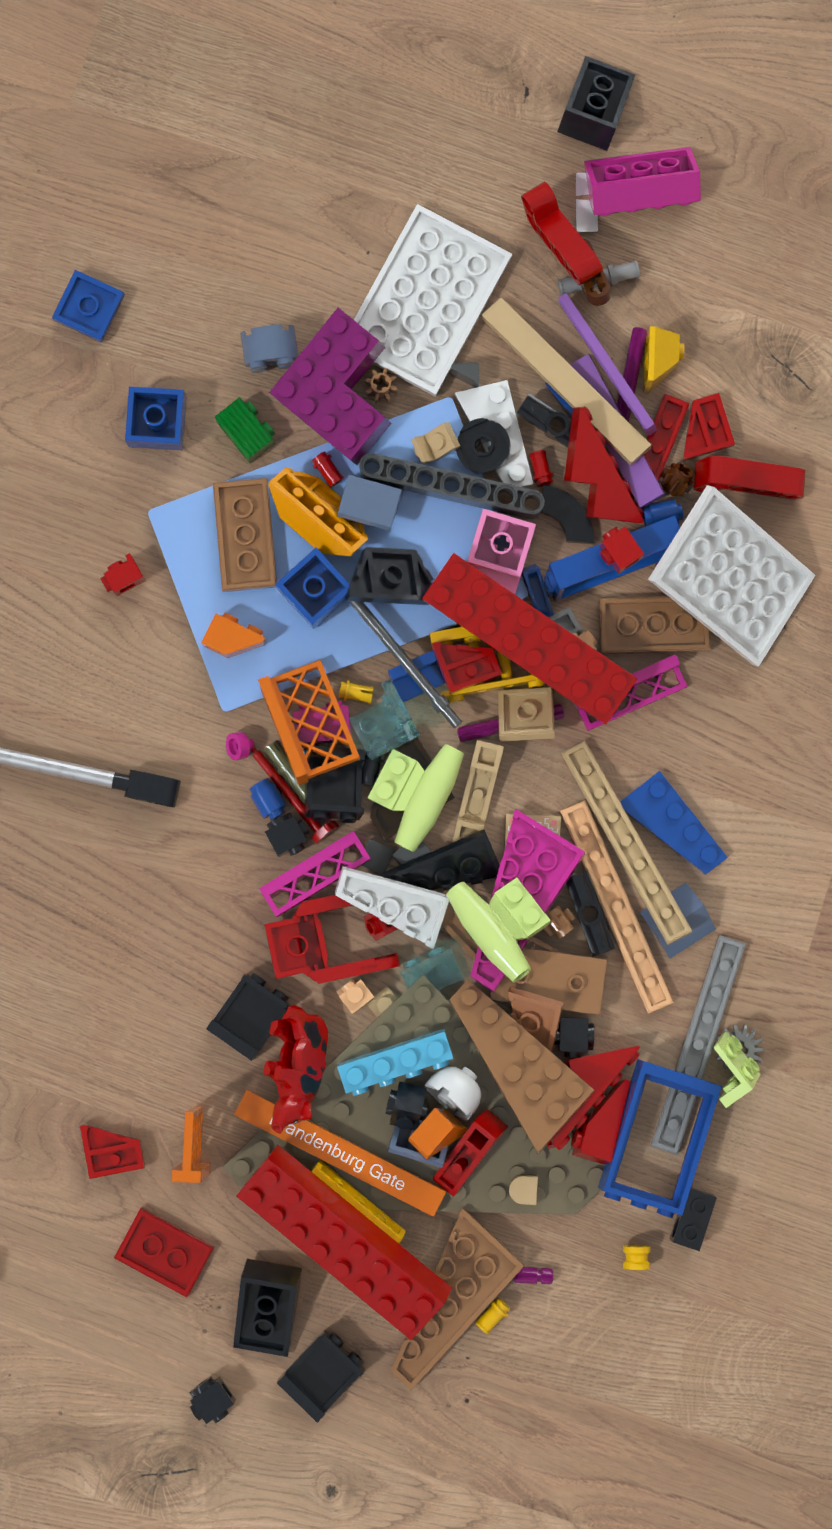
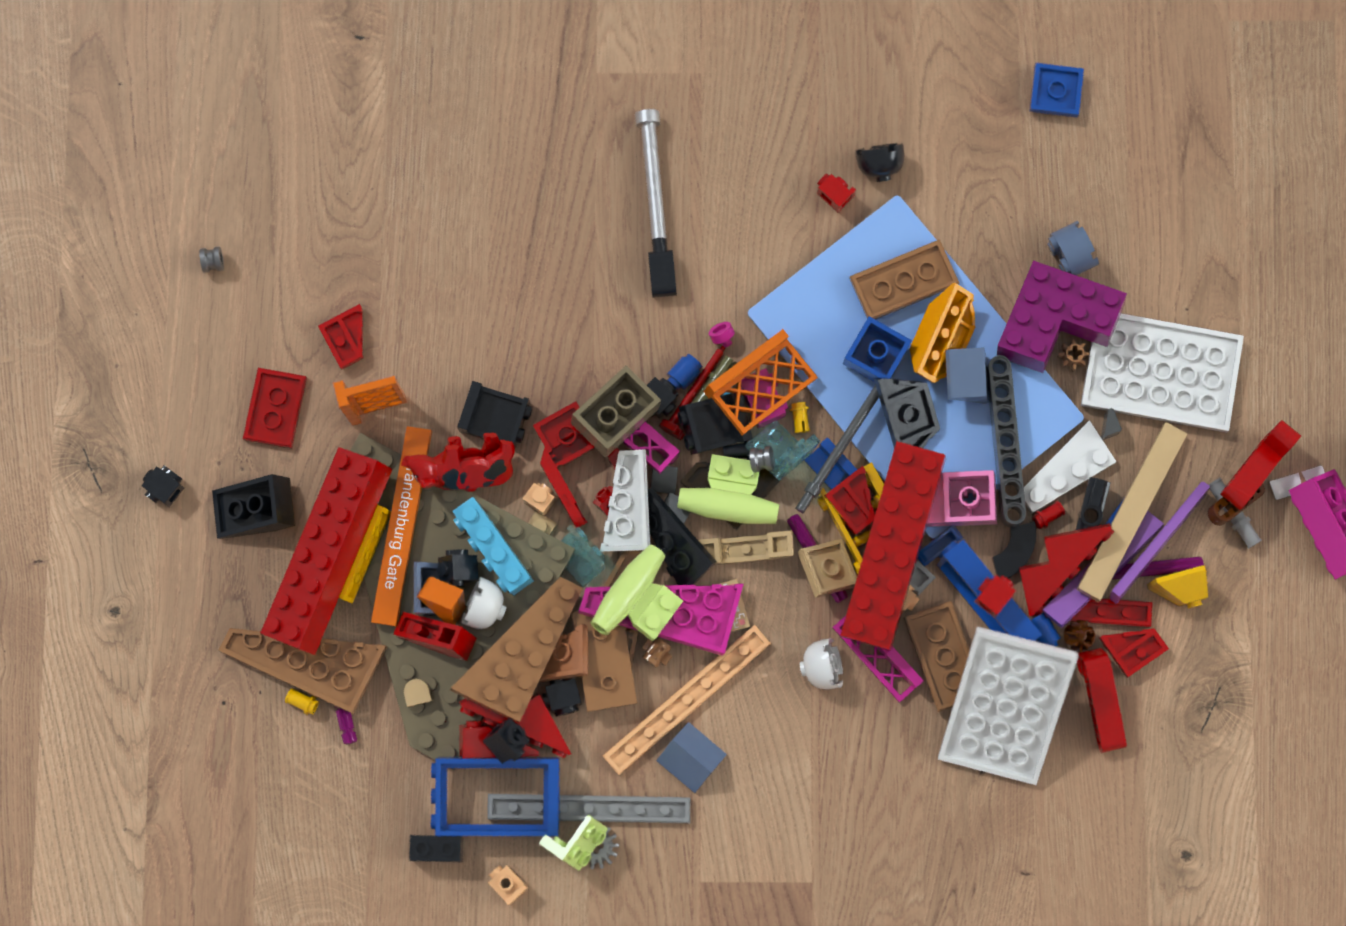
camera: 75 degrees right, 5 degrees down
(105, 516) = (881, 160): none -> black cylinder
(155, 418) = (979, 175): blue brick -> none
(230, 638) = (810, 296): orange slope -> none
(245, 429) = (995, 253): green brick -> none
(292, 885) = (615, 411): none -> dark tan brick
(321, 1374) = (210, 571): black panel -> none
(327, 469) = (984, 332): red pin -> none
(392, 746) = (762, 459): none -> flat silver wheel
(435, 443) = (1037, 415): tan bracket -> none
(497, 453) = (1050, 444): black plate -> none
(596, 931) = (659, 687): black piece -> none
(609, 1109) = (506, 741): none -> black brick
(626, 753) = (822, 665): none -> white cylinder
(626, 843) = (743, 689): tan tile -> none
(636, 1257) = (388, 810): yellow wheel -> none
(670, 819) = (778, 722): blue wing -> none
(756, 1143) = (516, 888): none -> light nougat brick

